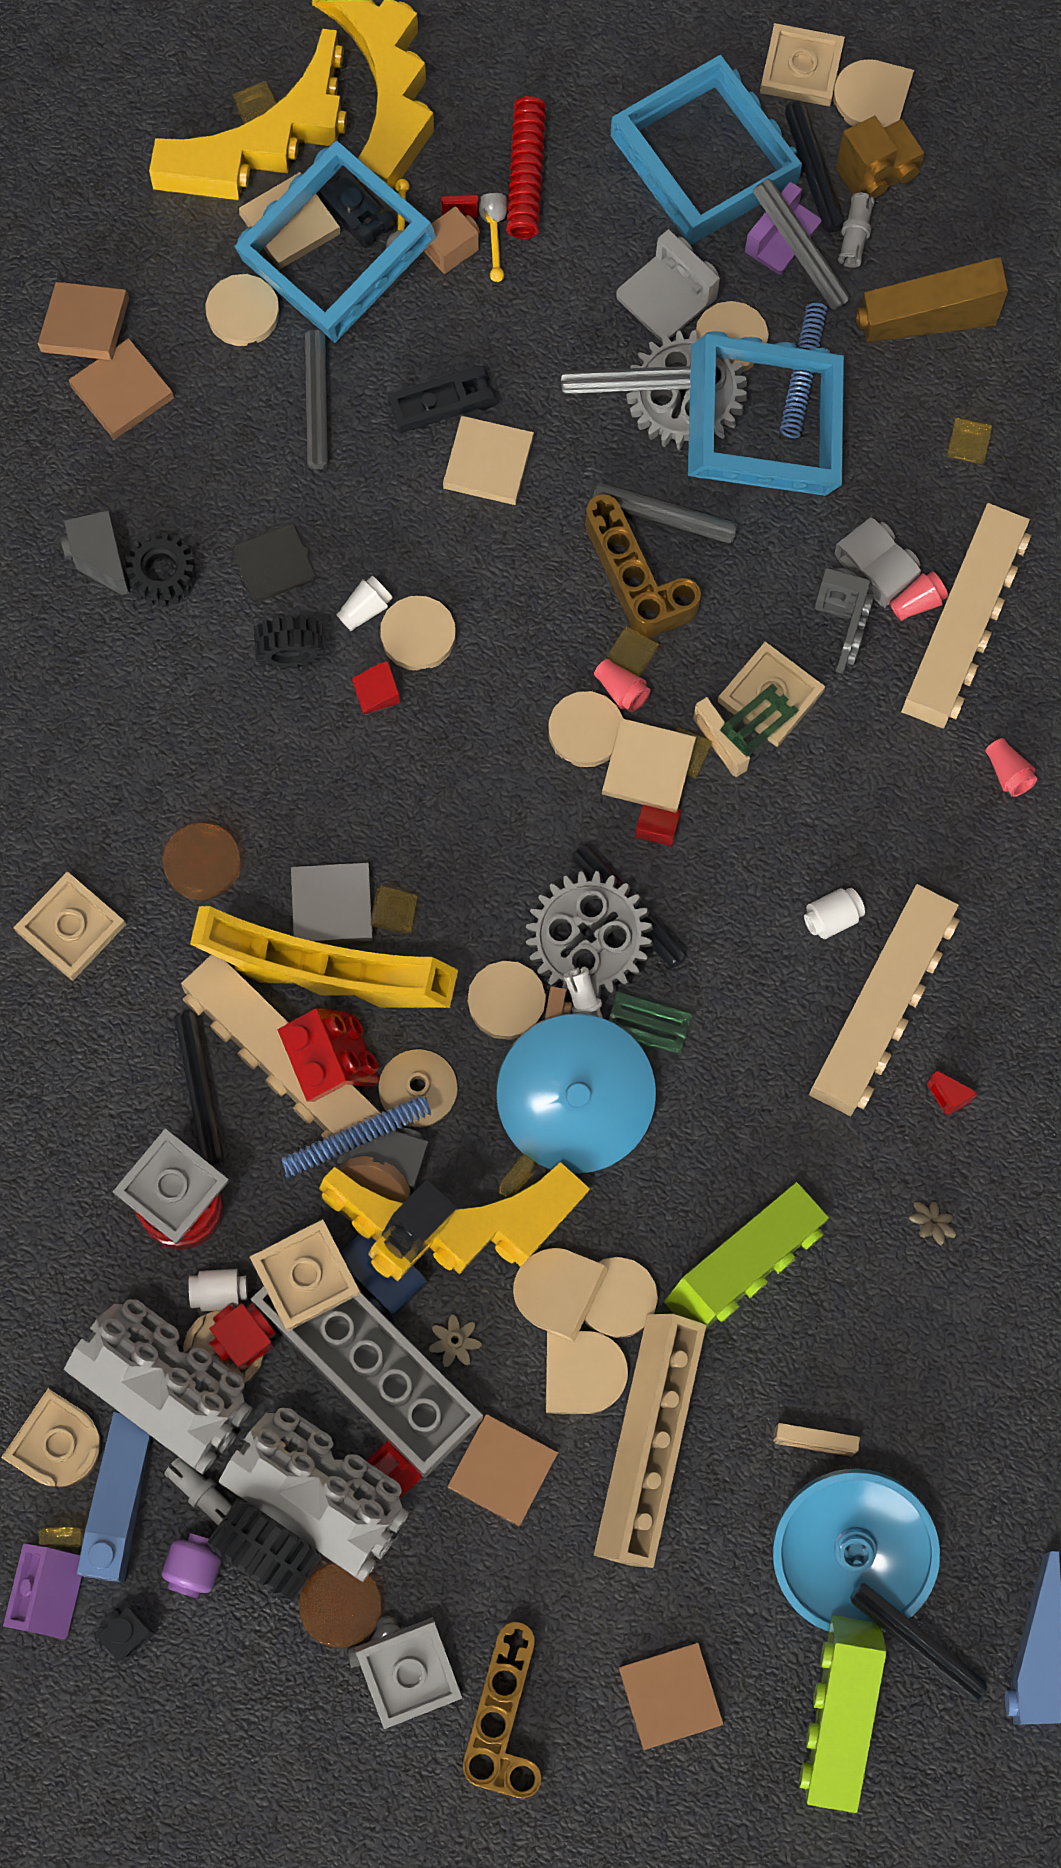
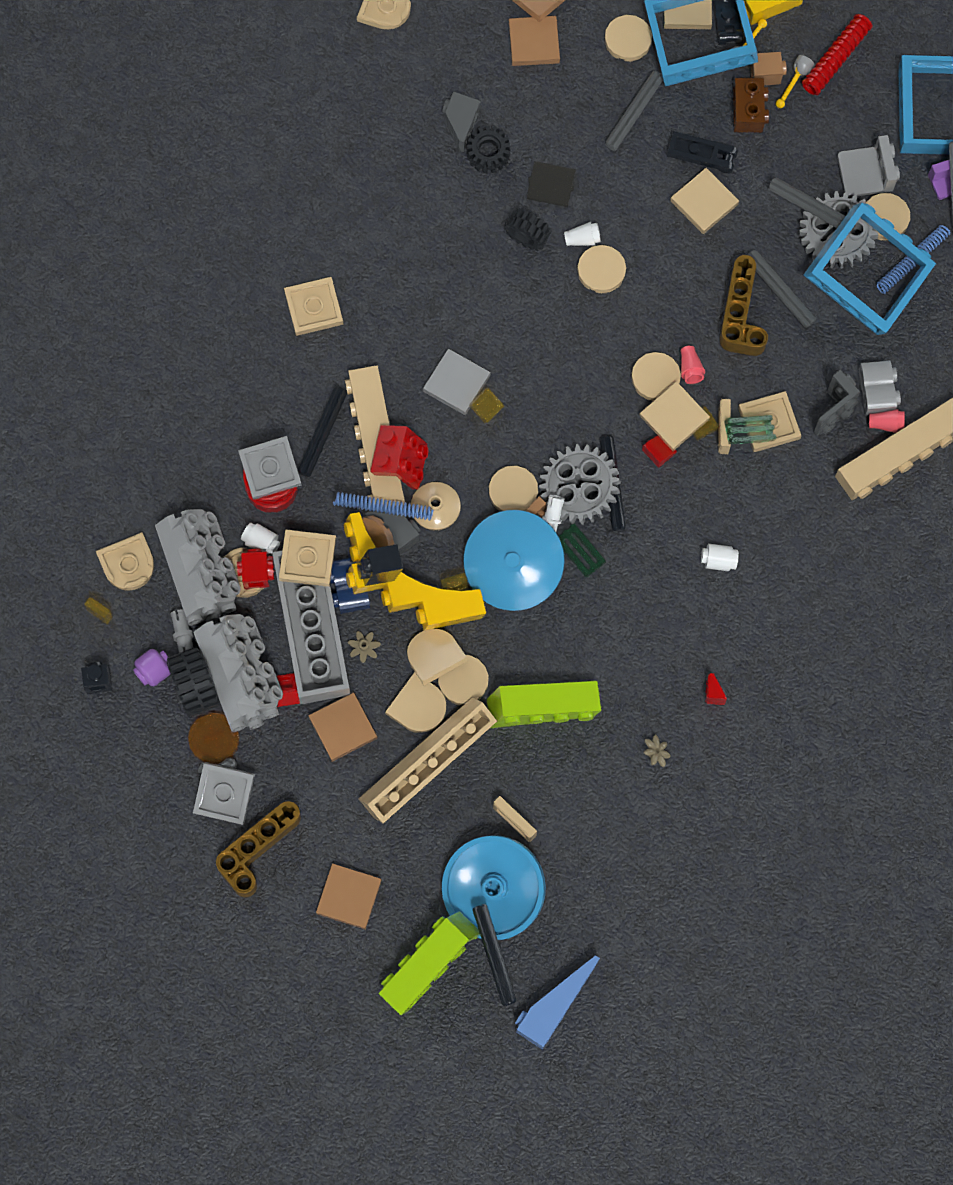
camera: 35 degrees right, 0 degrees up
(44, 1591) = (72, 631): medium lavender panel -> none
(115, 1502) = (135, 611): medium blue slope -> none
(201, 861) = (404, 316): clear orange tile -> none
(324, 968) = (426, 409): yellow arch -> none
(376, 688) = (558, 284): red slope -> none
(460, 300) = (749, 105): none -> reddish brown brick
(466, 204) = (787, 53): red slope -> none
(633, 651) = (710, 352): clear yellow tile -> none
(883, 1001) = (714, 619): tan brick -> none
(1011, 768) = (872, 544): coral cone -> none

